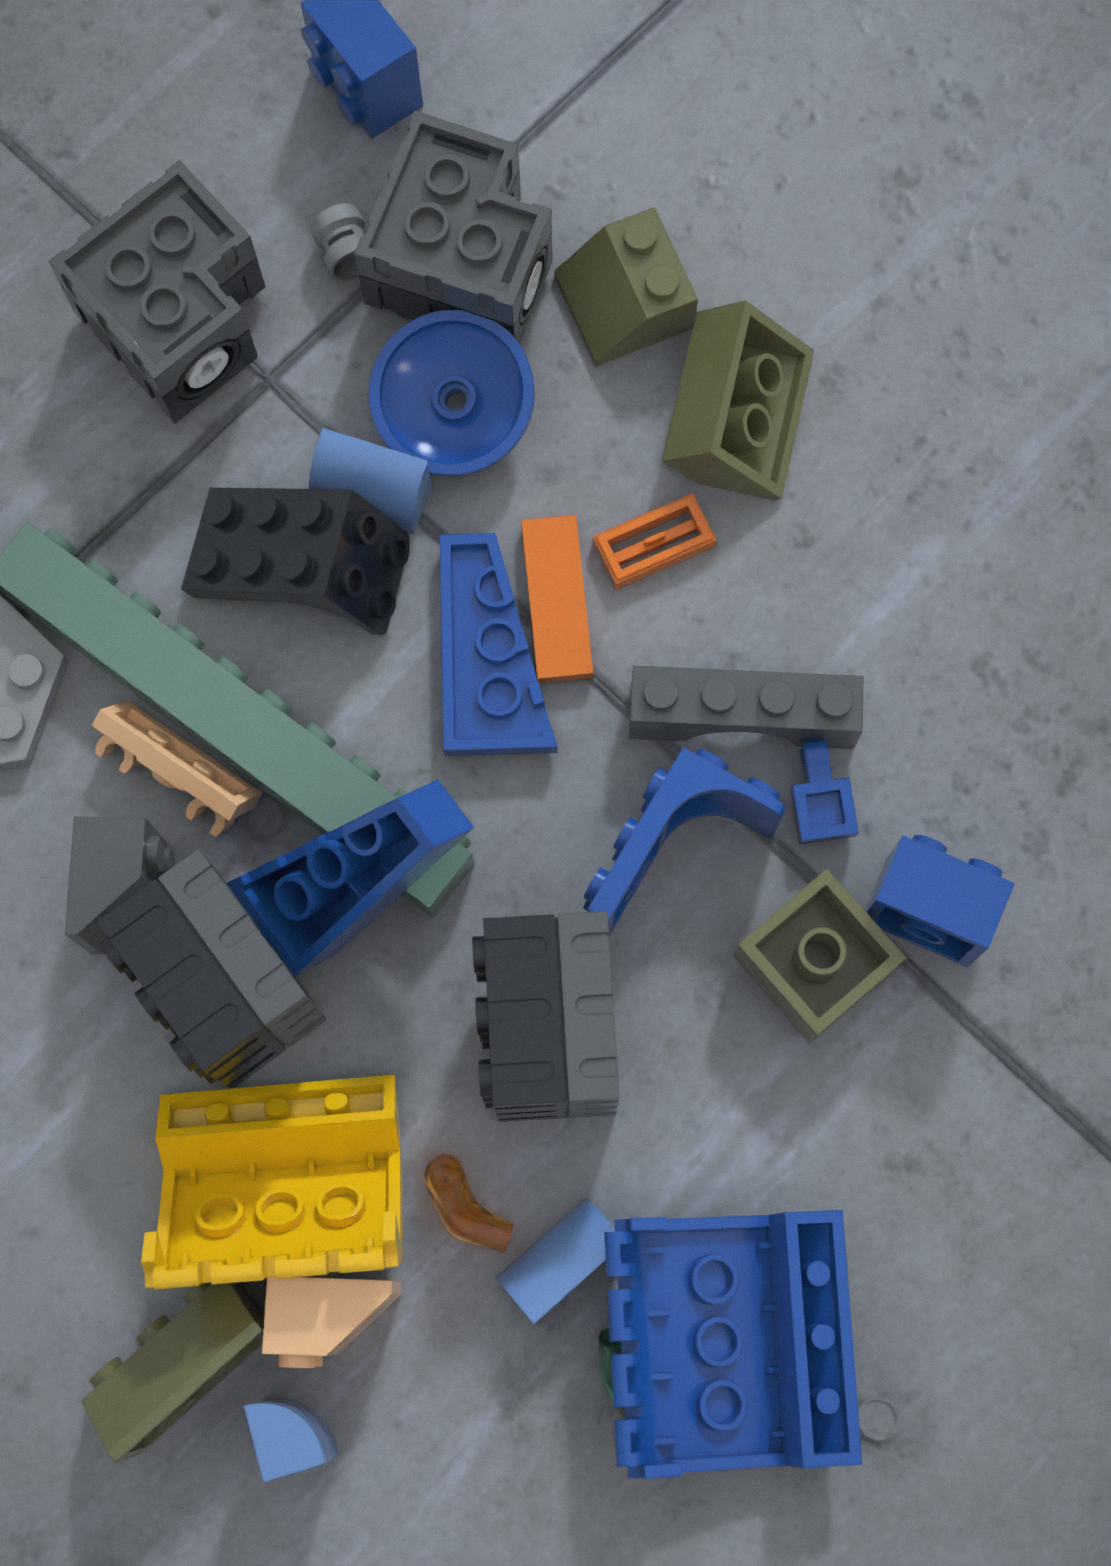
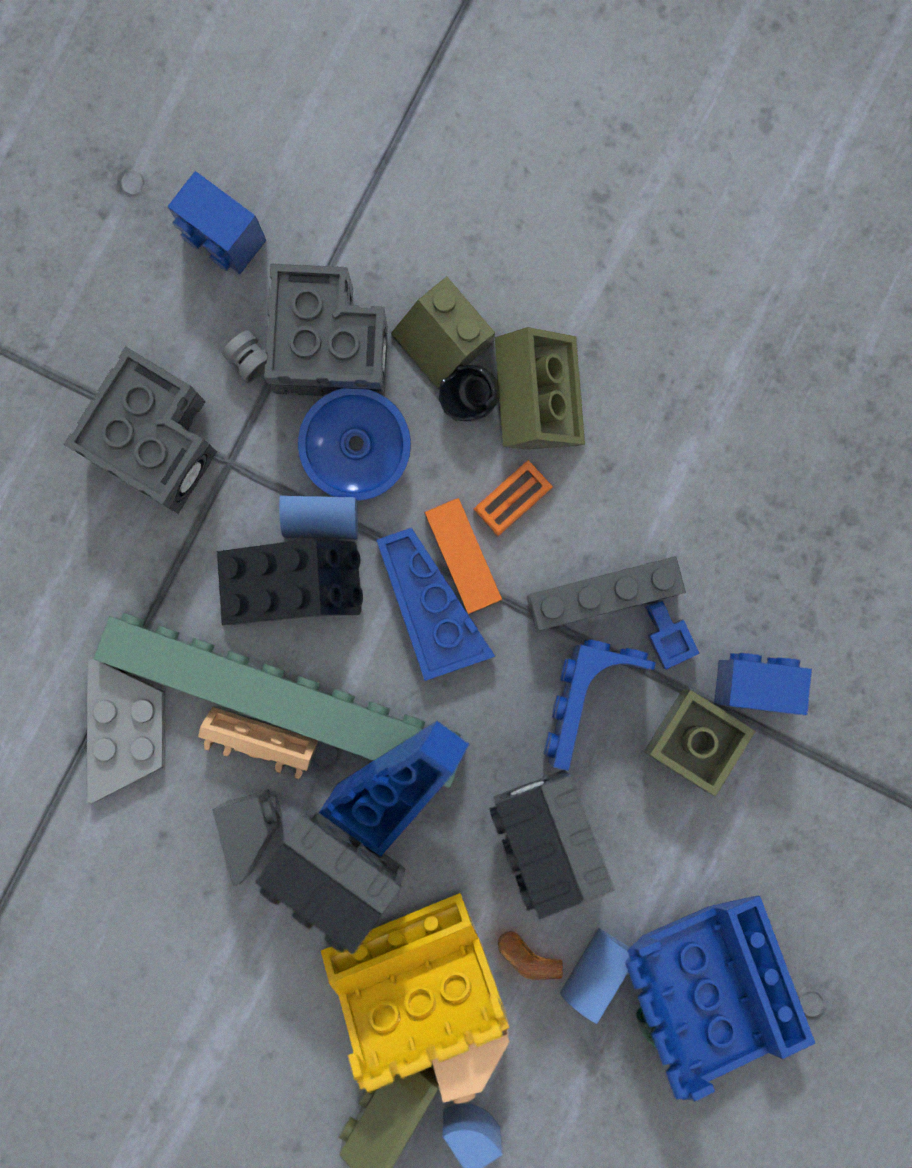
camera: 20 degrees left, 10 degrees up
(636, 376) = (469, 393): none -> black hair

